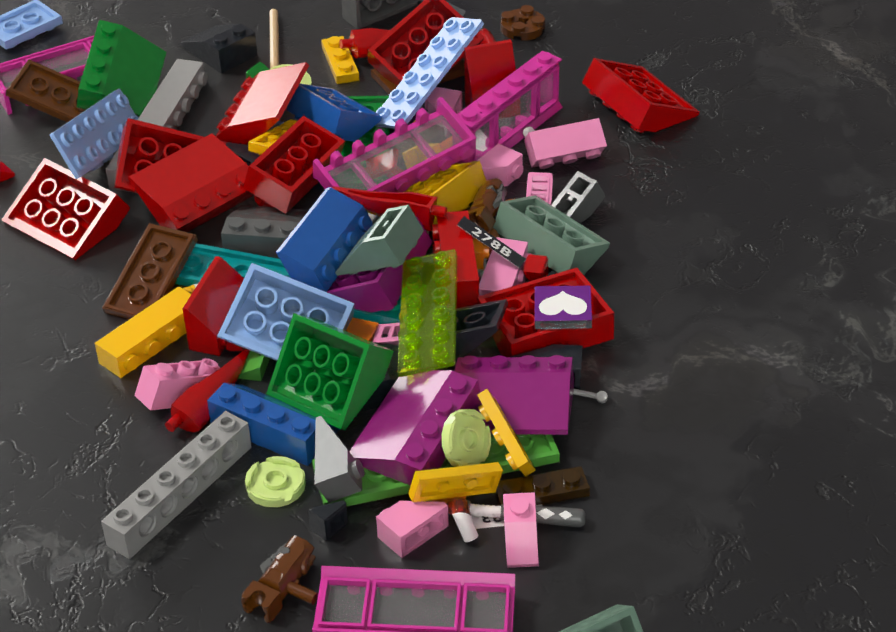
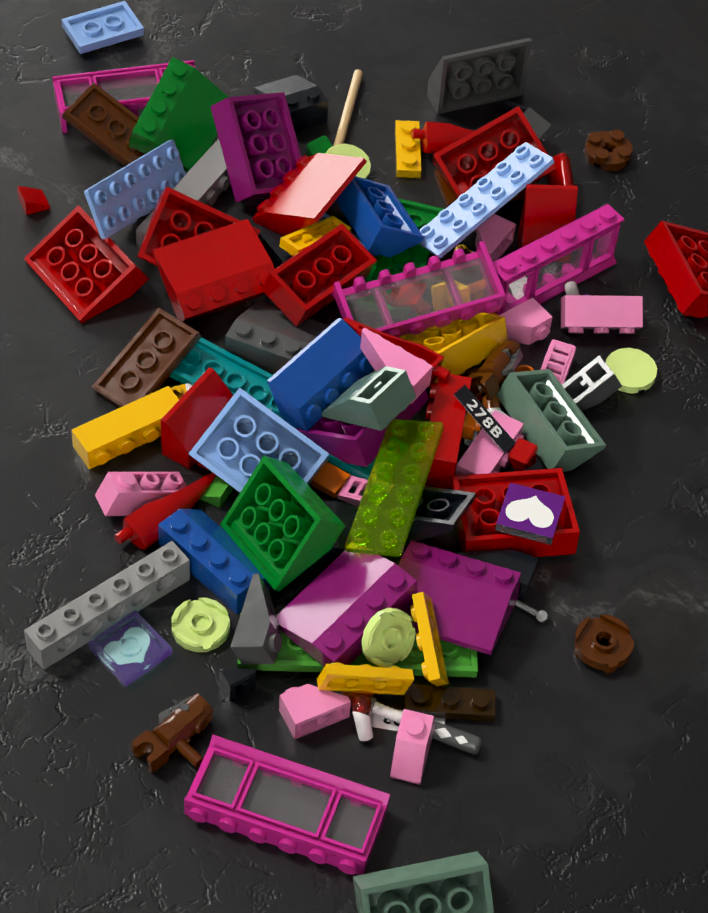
camera: 10 degrees right, 10 degrees up
(198, 75) = (256, 142): none -> magenta slope
(211, 518) = (130, 648): none -> clear light blue tile
(374, 203) = (384, 353): none -> bright pink slope
(613, 181) = (633, 369): none -> yellowish green tile
(675, 416) = (603, 657): none -> reddish brown plate

